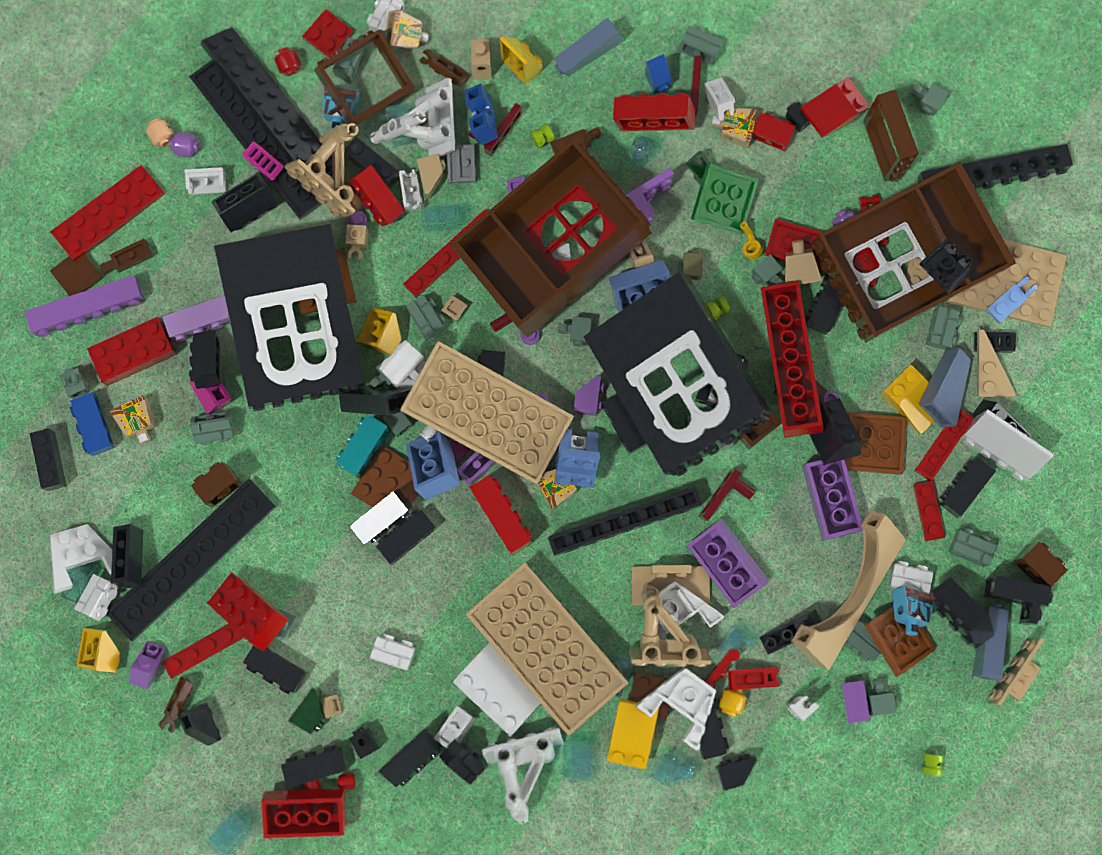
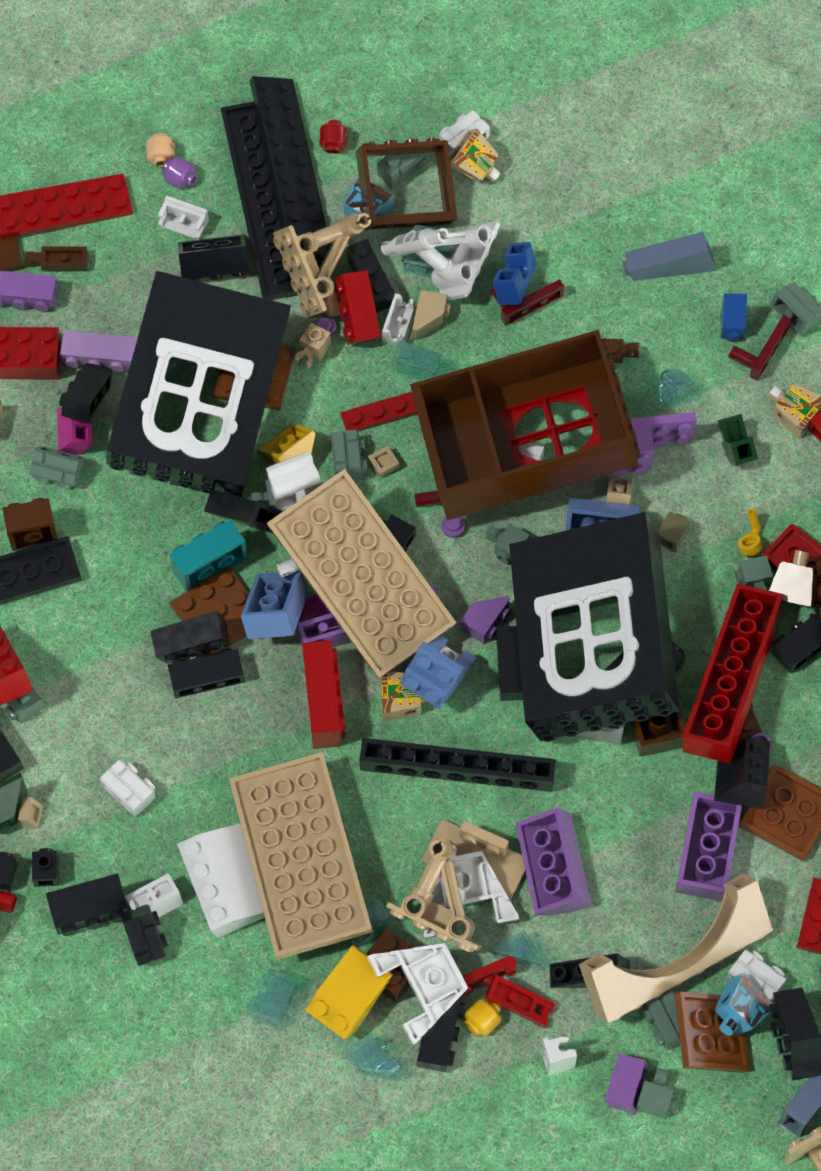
camera: 25 degrees right, 15 degrees down
(249, 152) = (248, 209): dark pink slope -> none
(327, 34) = (391, 124): red plate -> none
(398, 423) = (261, 549): sand green brick -> none
(444, 67) = (500, 212): reddish brown plate -> none
(462, 164) = (468, 318): light grey plate -> none
(481, 58) = (545, 214): tan torso -> none
(513, 753) = (195, 950): white plate -> none
(520, 59) = (587, 237): yellow slope -> none
(542, 136) = (566, 326): lime wheel -> none
(654, 112) = (707, 351): red brick -> none
(719, 98) = (790, 368): white hinge -> none
(719, 307) = (673, 588): lime wheel -> none
(724, 198) = (742, 474): green plate -> none
(730, 481) = (601, 777): dark red piece -> none
(735, 773) = (446, 1096): black slope -> none

